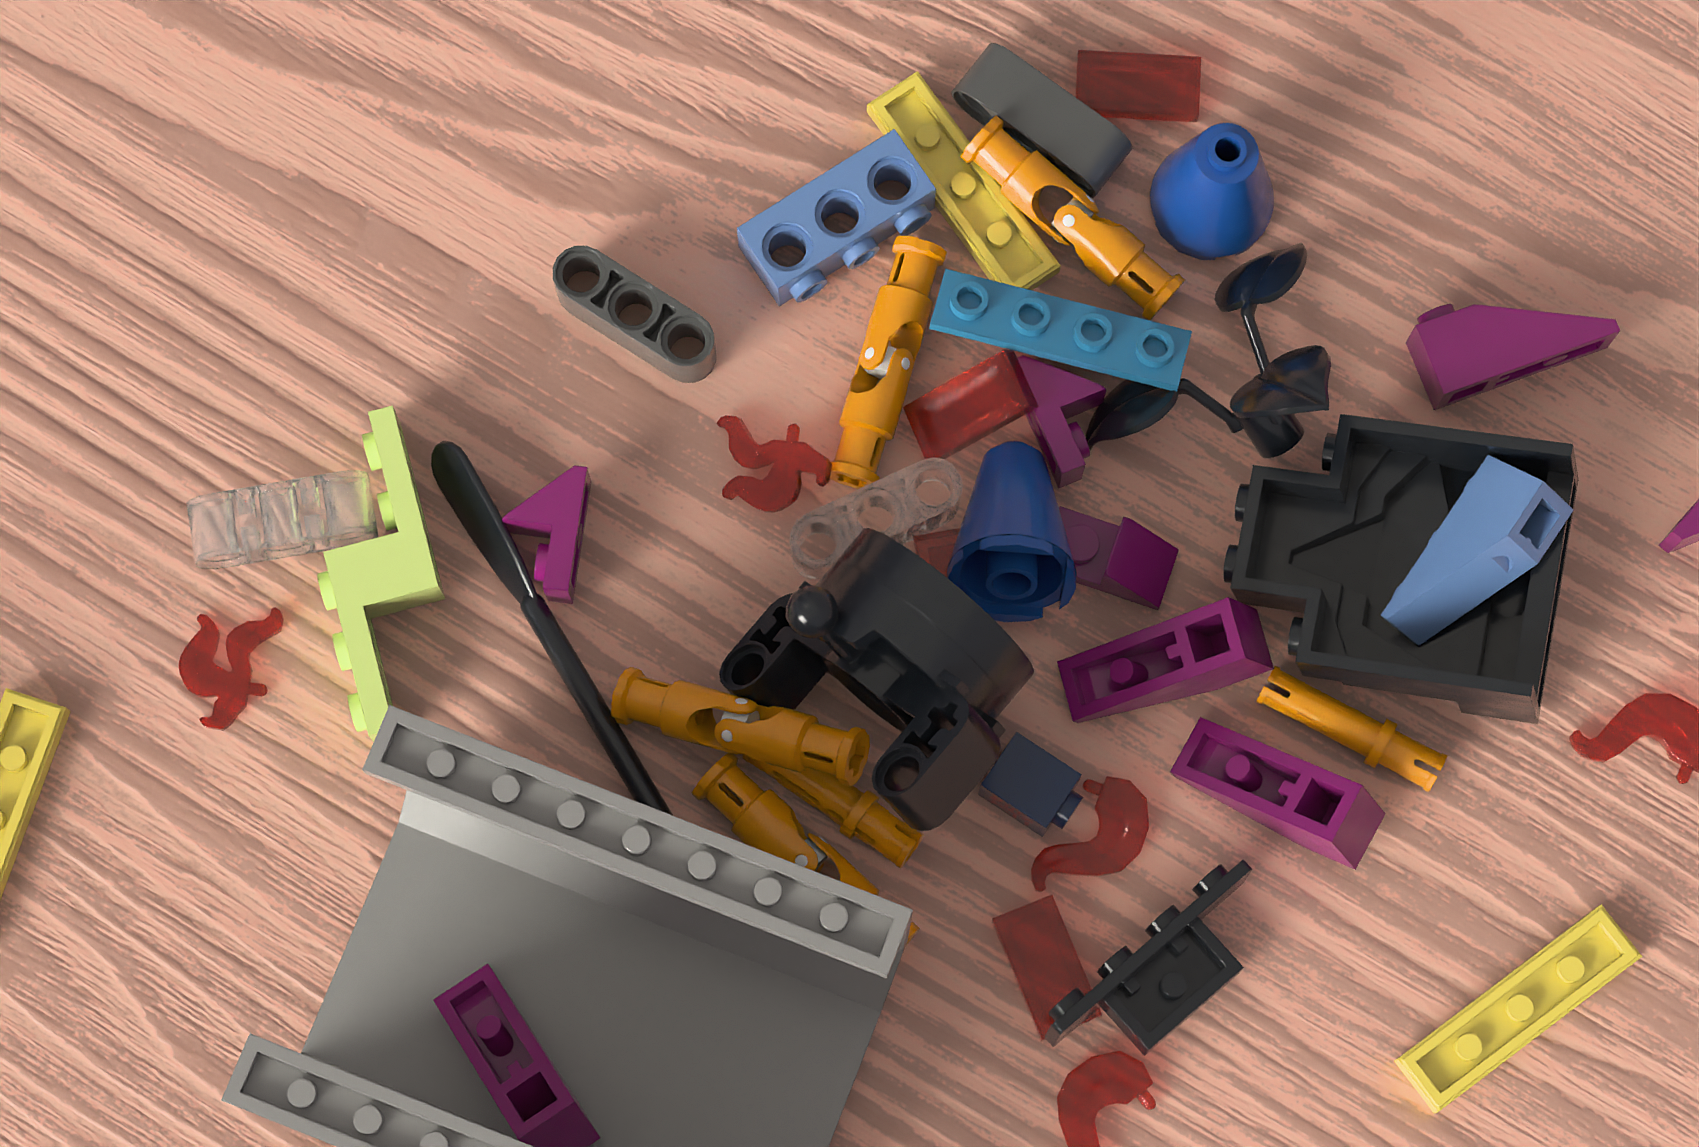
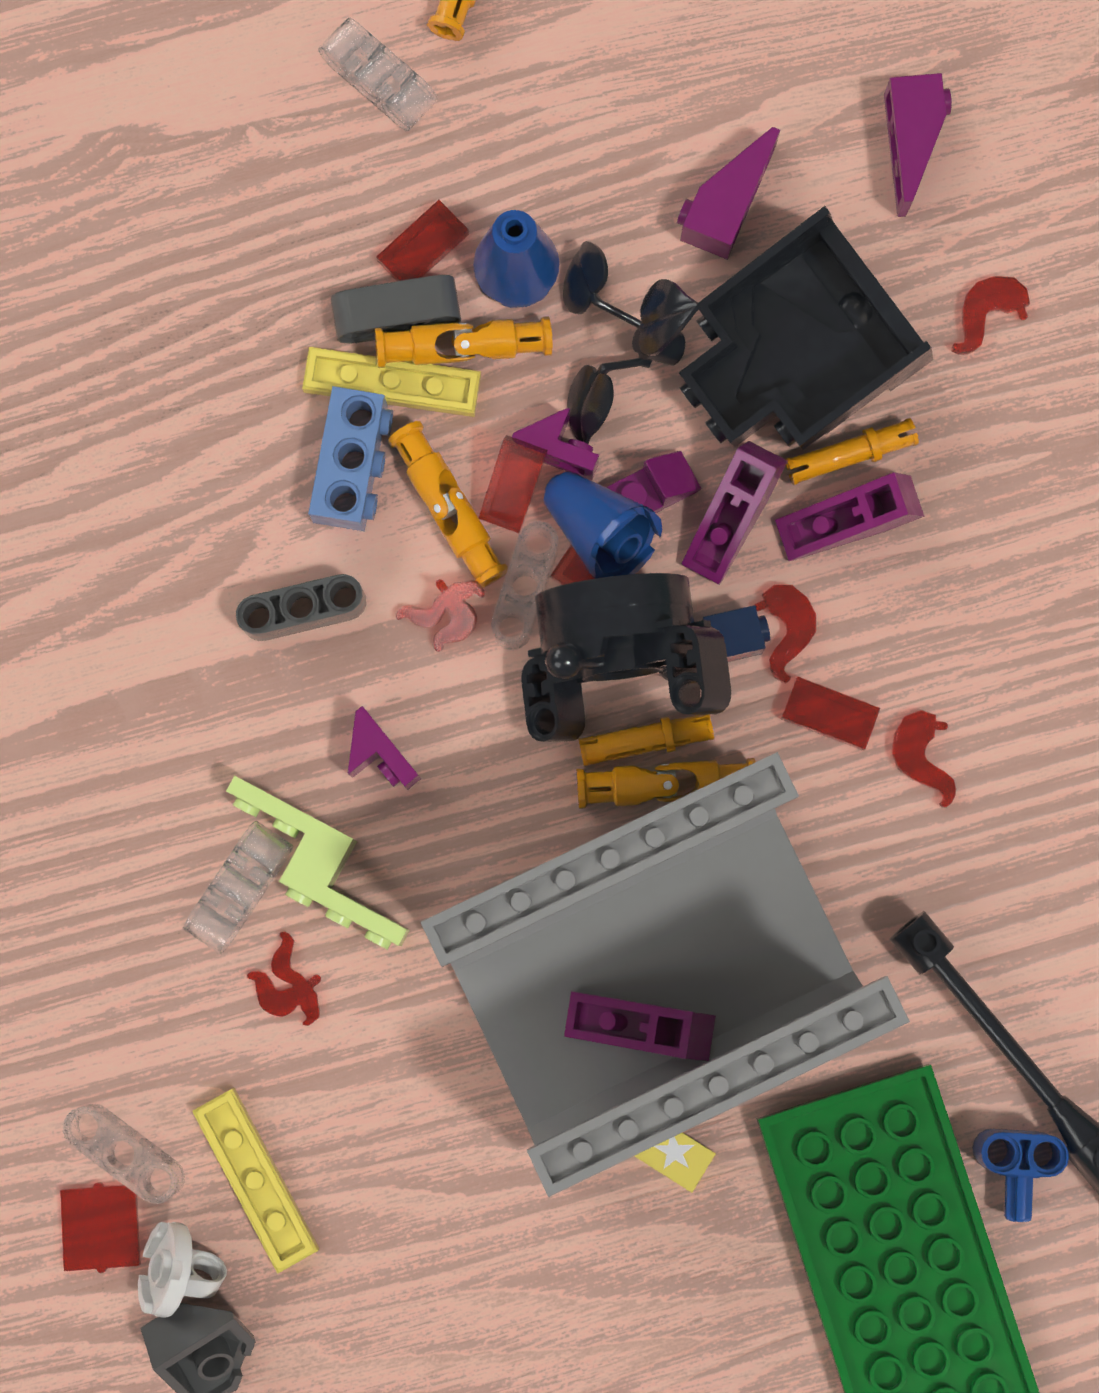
camera: 45 degrees left, 5 degrees up
(491, 536) = (341, 786): black piece -> none
(761, 732) = (576, 749): light orange piece -> none
(1060, 330) = (519, 401): dark azure bracket -> none
(1166, 977) = (893, 659): black bracket -> none
(1482, 545) = (827, 297): medium blue slope -> none
(1517, 1009) = (1062, 503): light yellow tile -> none

